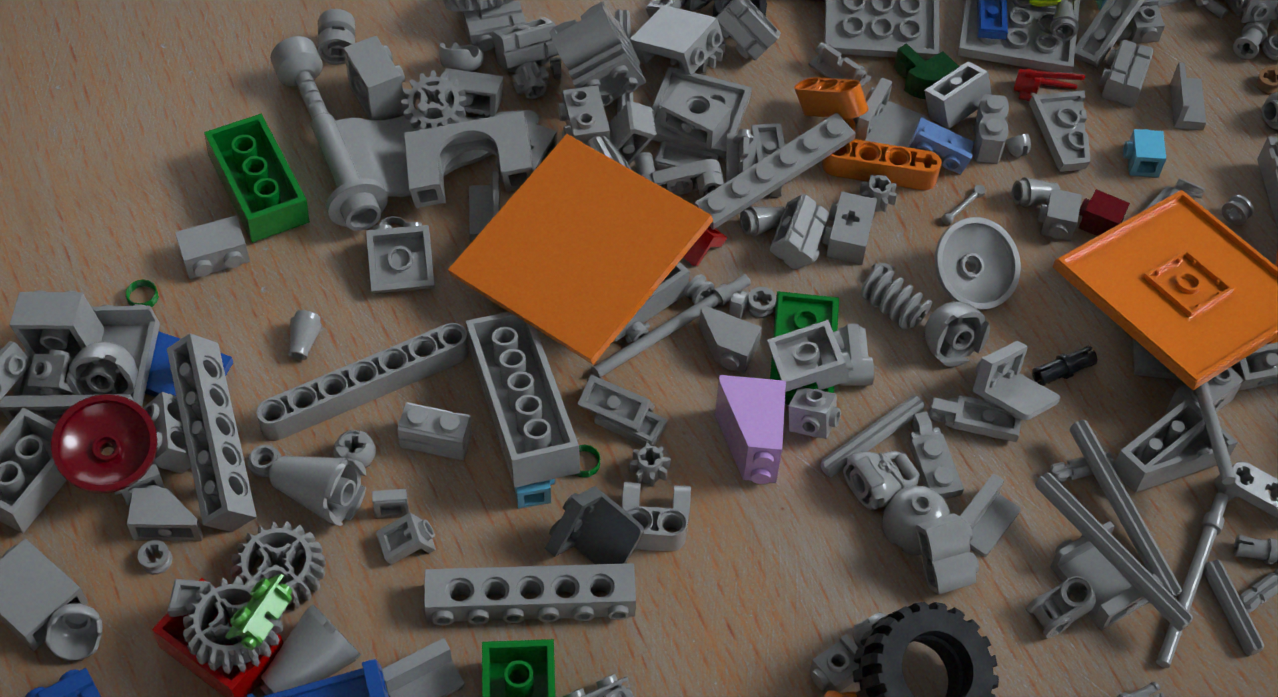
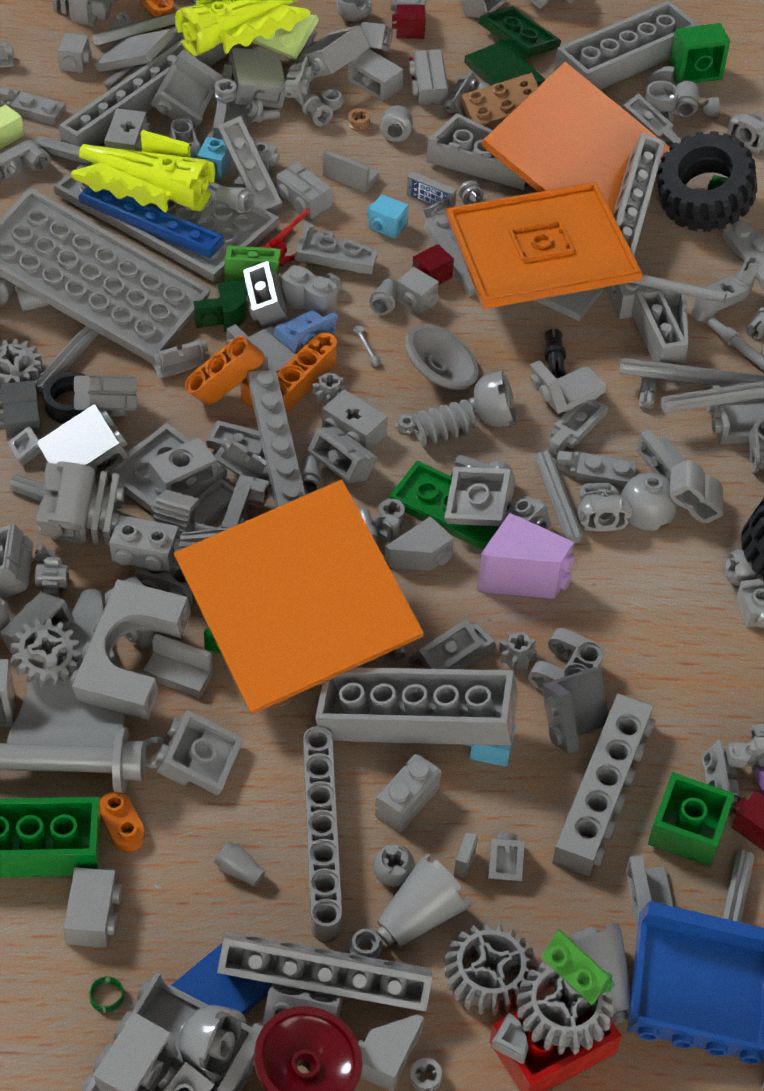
camera: 65 degrees left, 5 degrees down
(313, 234) = (119, 819): none -> orange plate
(993, 58) = (242, 257): none -> bright green panel
(1210, 175) = (429, 190): none -> tile

